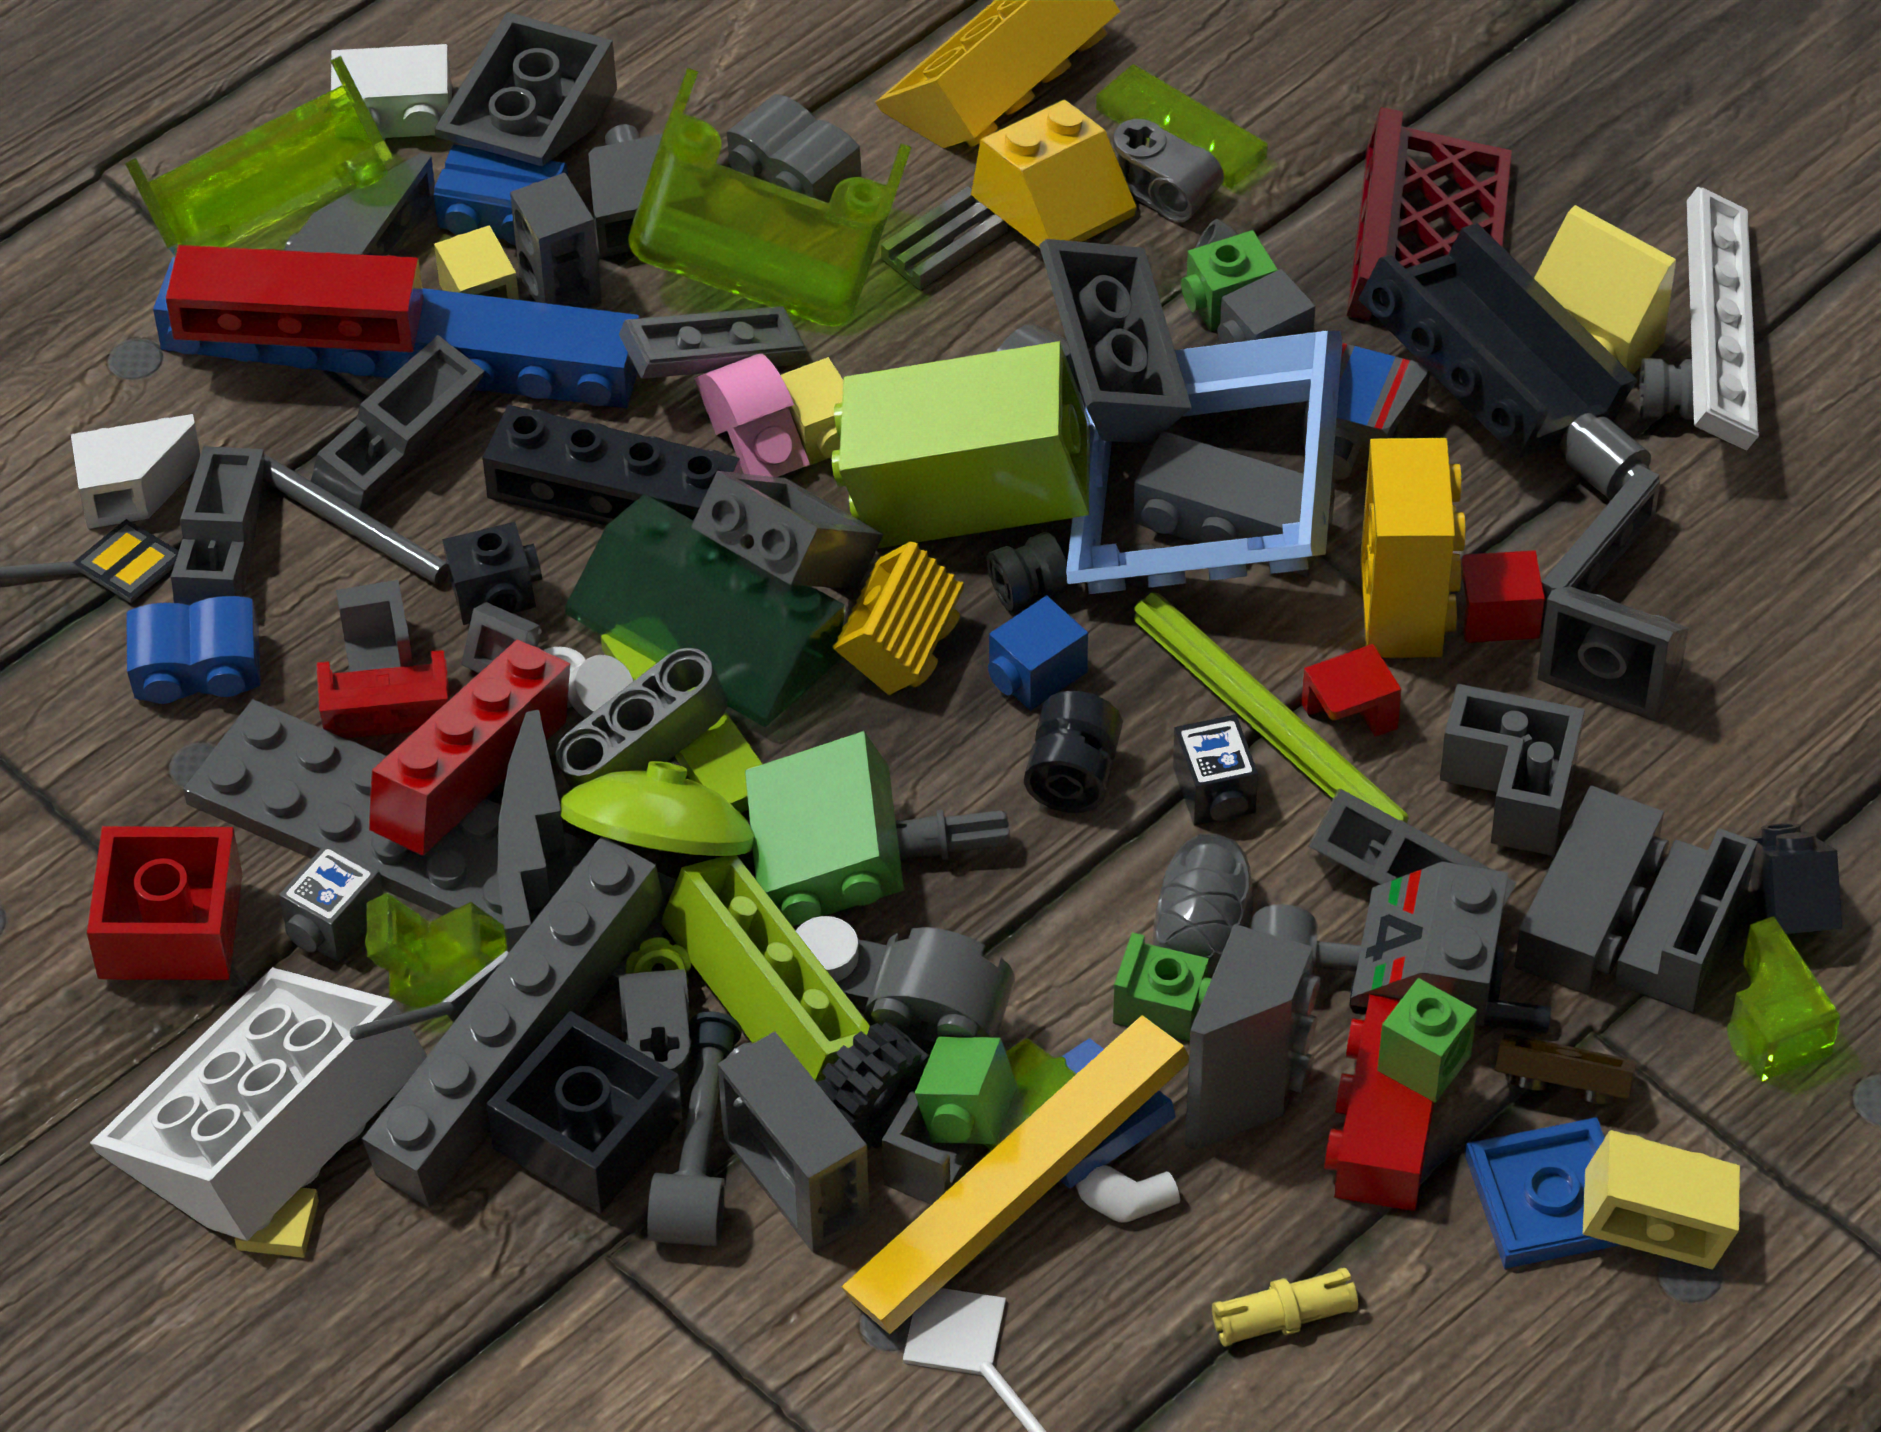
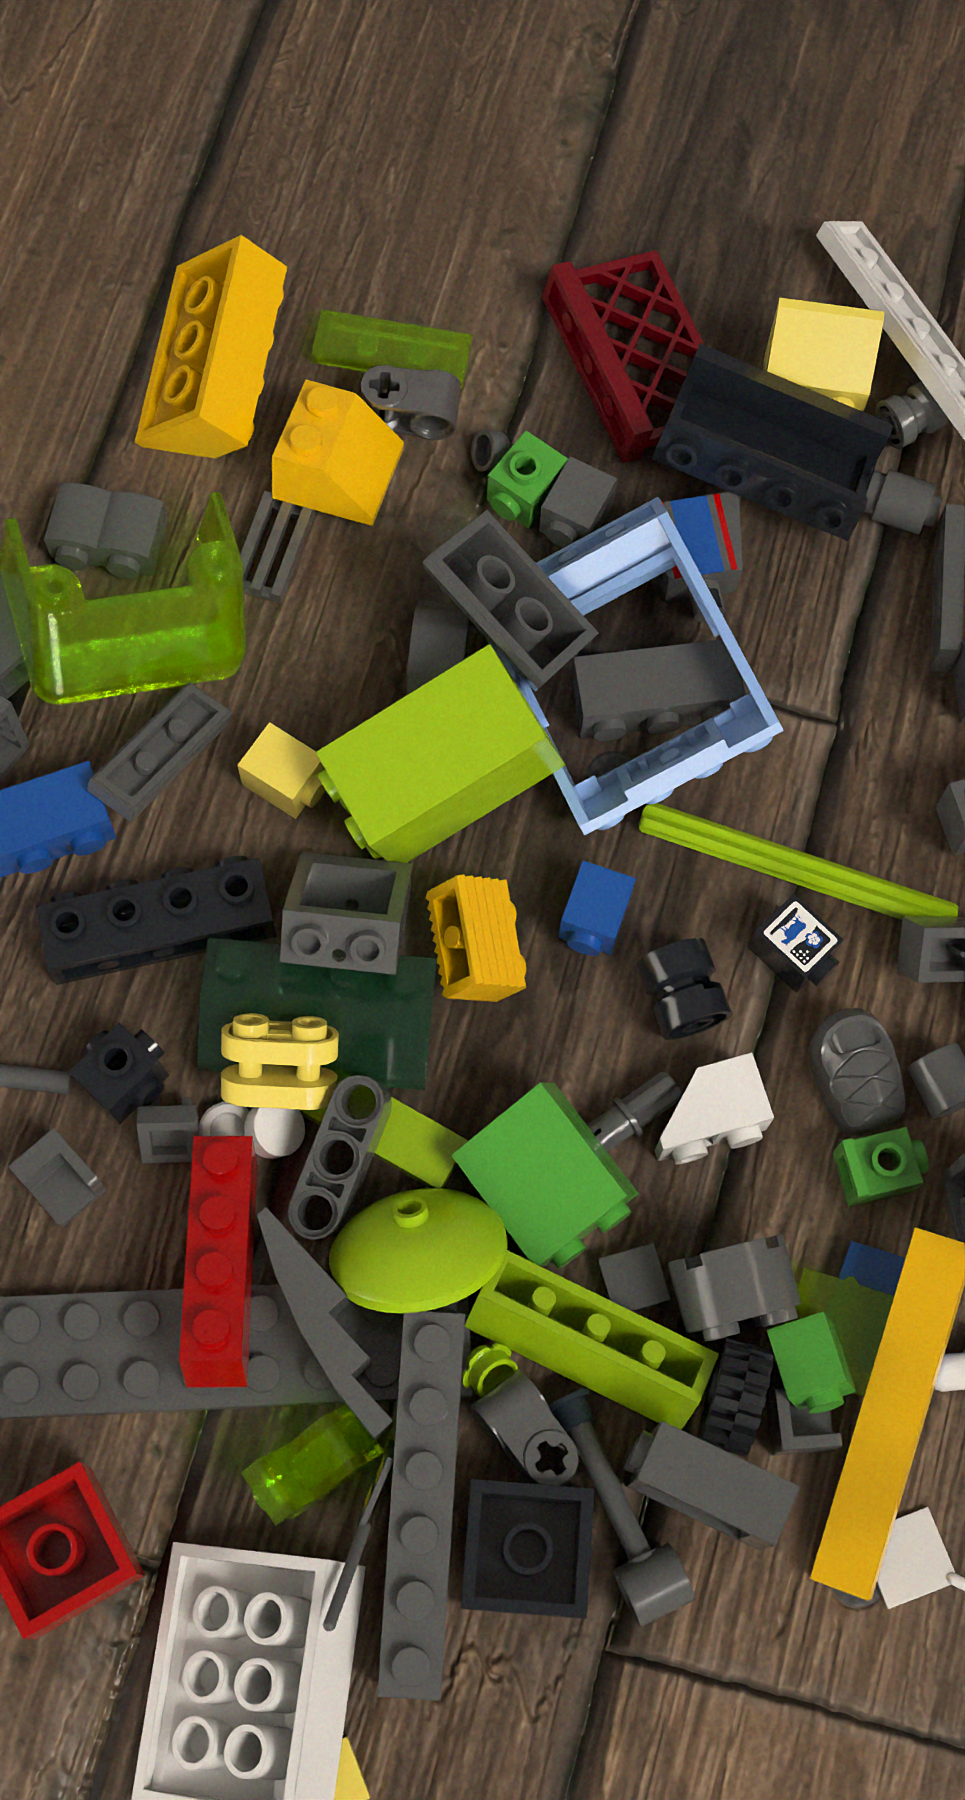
camera: 35 degrees left, 20 degrees up
(328, 902) = (188, 1462): dark grey brick -> none
(381, 699) = (101, 1232): red hinge -> none
(625, 585) = (278, 1062): none -> light yellow brick
(753, 408) = (237, 799): bright pink brick -> none
(832, 943) = (613, 1277): white tile -> none
(1028, 571) = (539, 837): pearl dark grey wheel -> none
(1028, 865) = (718, 1106): none -> white slope
(1353, 685) = (856, 815): red panel -> none
(1410, 546) = (840, 675): yellow brick -> none
(1502, 596) = (909, 667): red panel -> none

